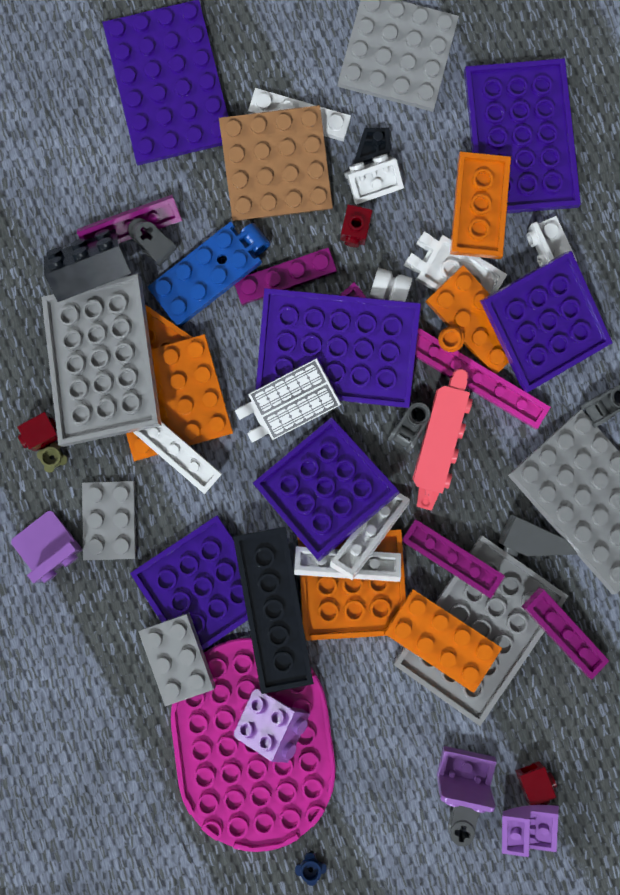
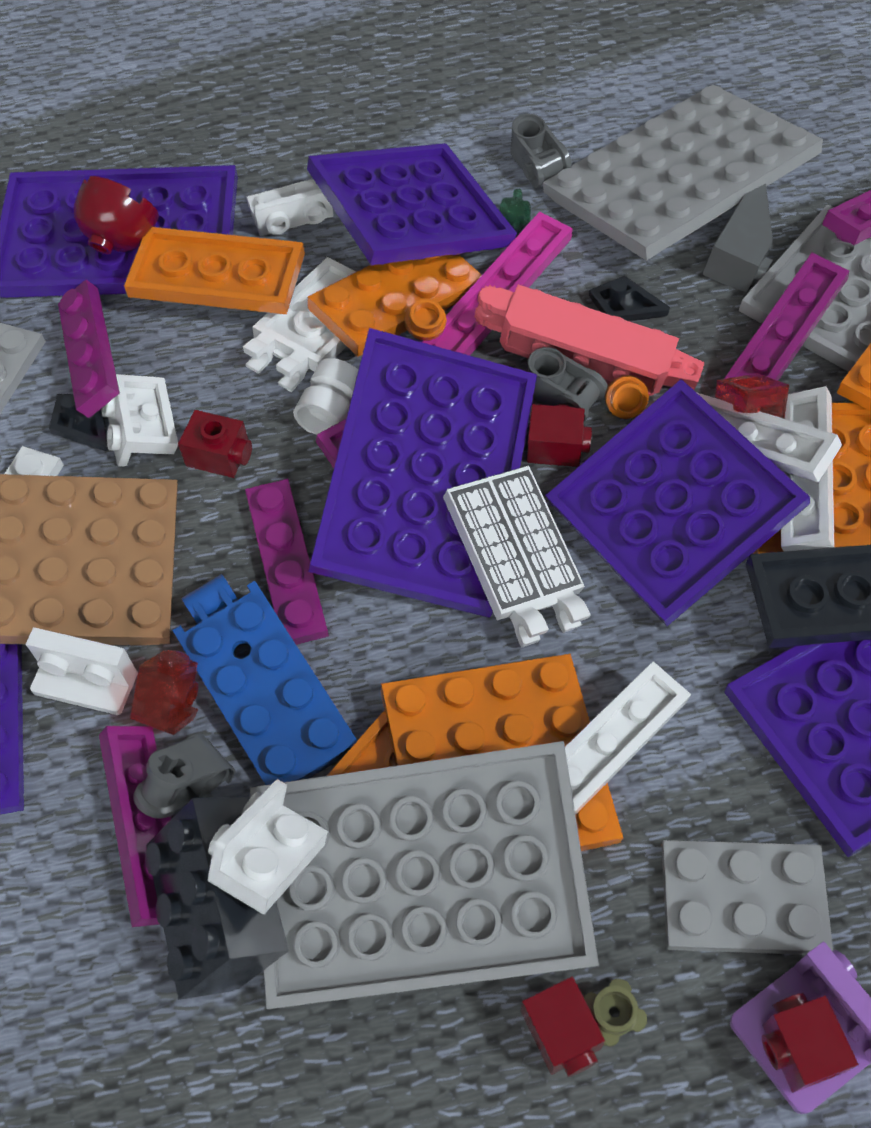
camera: 80 degrees left, 25 degrees down
(35, 541) = (806, 1042): none -> dark red brick
(97, 284) = (263, 849): none -> white bracket
(195, 224) = (166, 692): none -> clear red brick
(206, 178) = (81, 671): none -> white bracket
(373, 423) = (558, 435): none -> dark red brick
(391, 533) = (754, 394): none -> clear red bracket
(404, 464) = (626, 397): none -> orange plate
(419, 138) = (87, 349): none -> magenta plate
(482, 464) = (627, 300): none -> black piece
(513, 133) = (112, 217): none -> dark red cylinder
(551, 391) = (516, 210): none -> clear green plate

